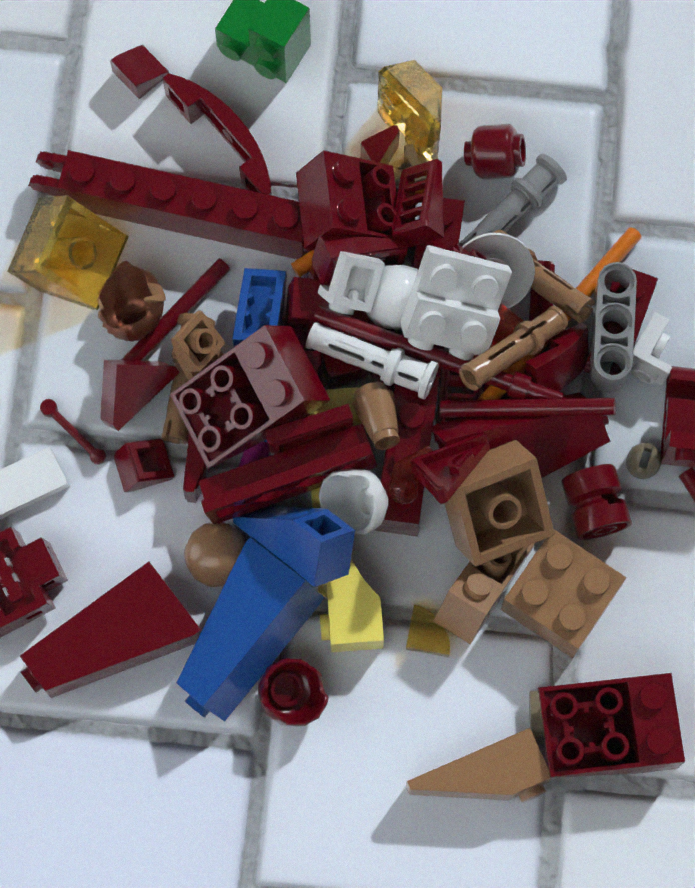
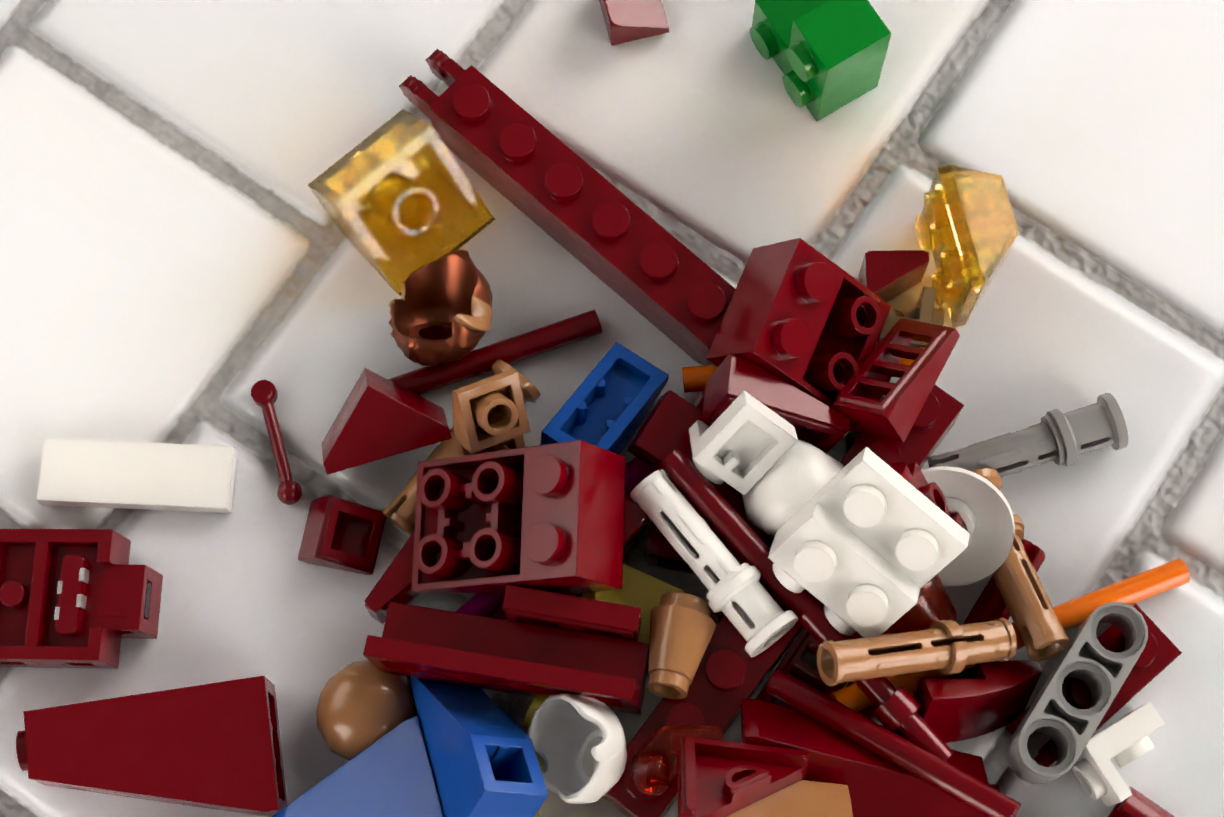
camera: 30 degrees right, 0 degrees up
(197, 101) = (679, 88): dark red slope -> none
(495, 151) = (1047, 357): dark red head -> none

